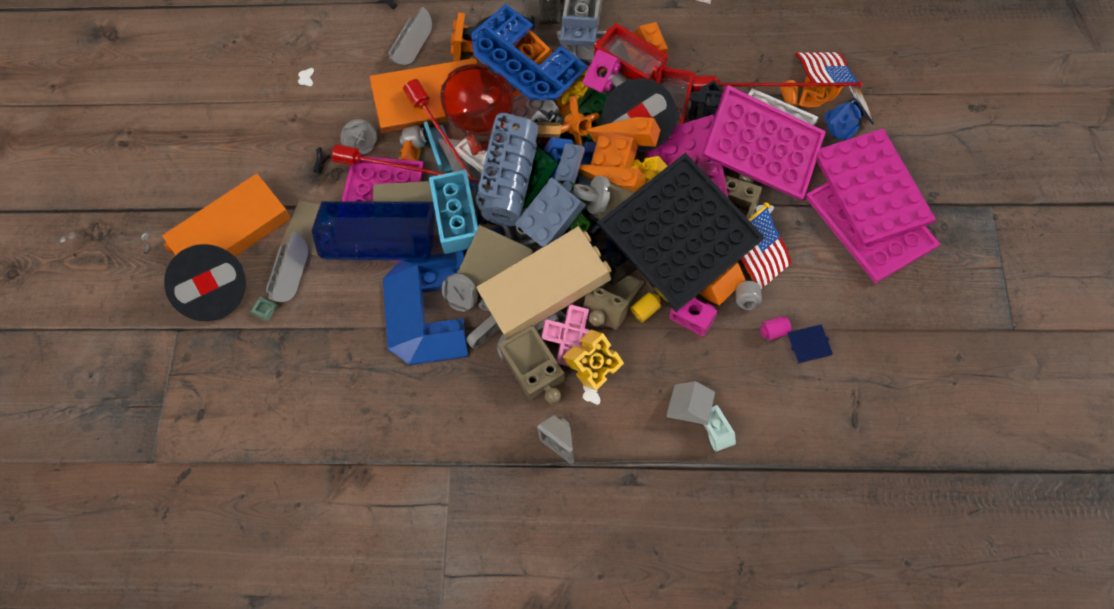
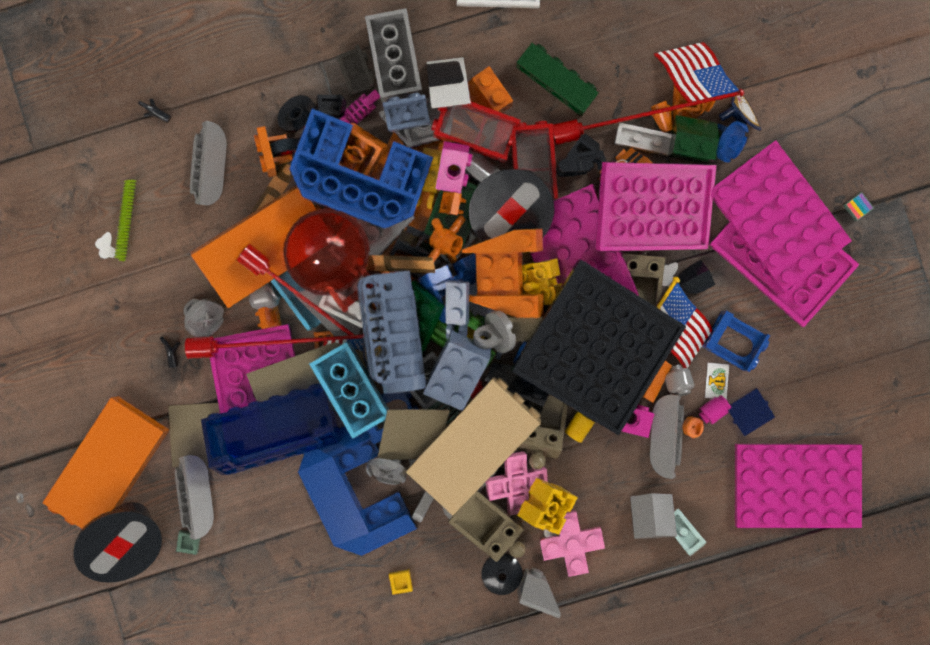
camera: 25 degrees left, 25 degrees up
(328, 58) = (123, 225): none -> lime piece
(434, 397) = (400, 582): none -> yellow tile
(528, 428) = (506, 564): none -> black dish
(548, 30) = (360, 108): none -> dark pink hinge
(591, 100) = (450, 203): none -> orange tile
(606, 410) = (572, 545): none -> bright pink plate
(617, 22) = (448, 82): none -> sticker
(709, 48) = (557, 79): none -> dark green brick
(725, 336) = (667, 435): none -> light grey brick
(751, 338) = (693, 427): none -> orange tile
(785, 306) = (717, 380): none -> white sticker
(787, 219) = (696, 278): none -> black brick
(804, 258) = (758, 339): none -> blue panel
(811, 110) = (694, 140): none -> dark green slope
(842, 421) = (798, 485): none -> dark pink plate
(949, 202) = (858, 206): none -> tile

